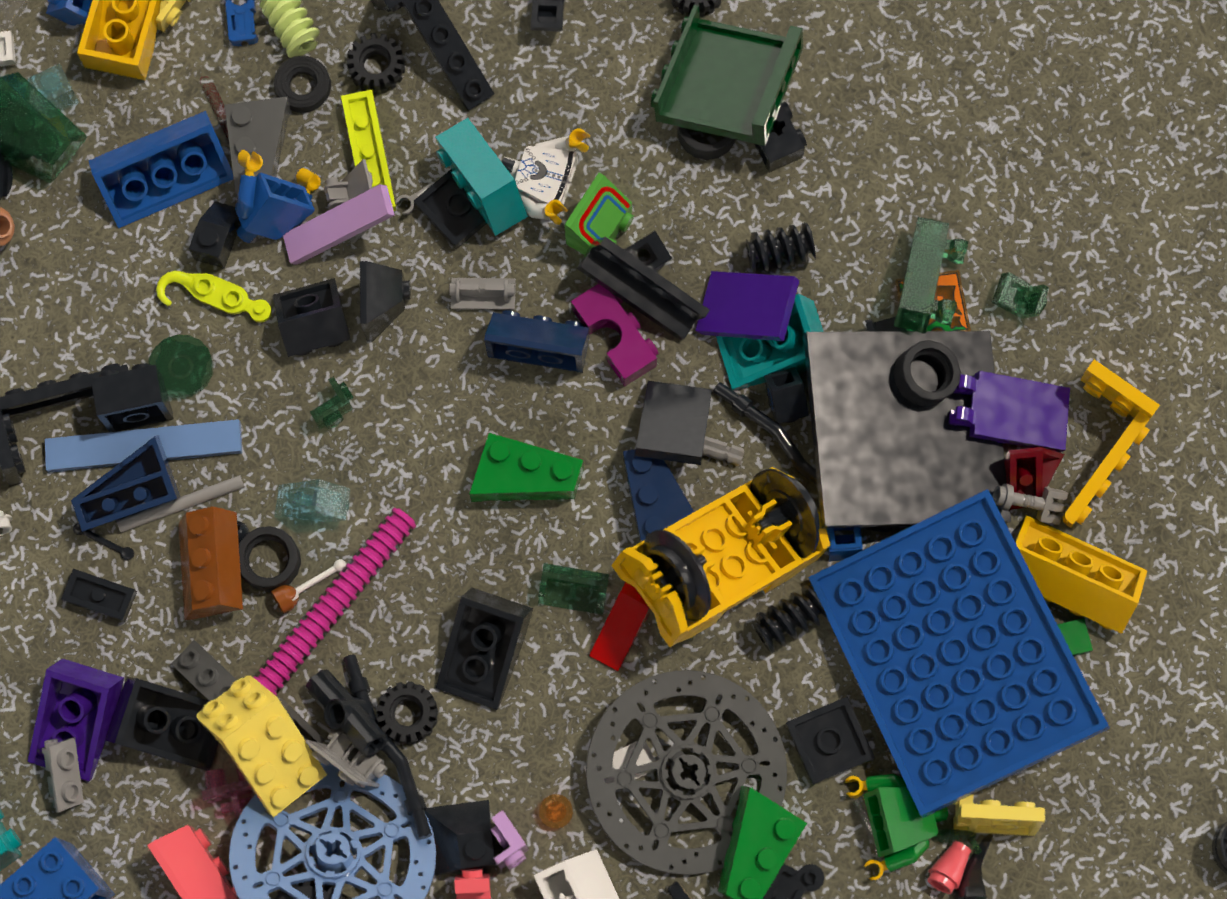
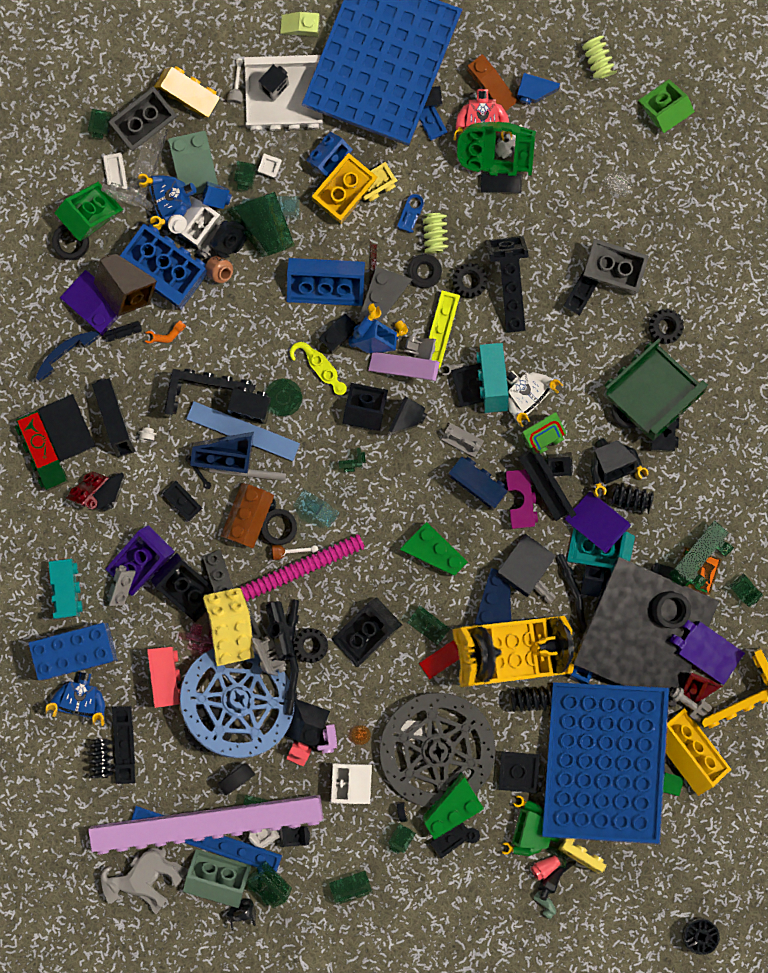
camera: 25 degrees right, 10 degrees up
(724, 209) = (614, 462): none -> black torso

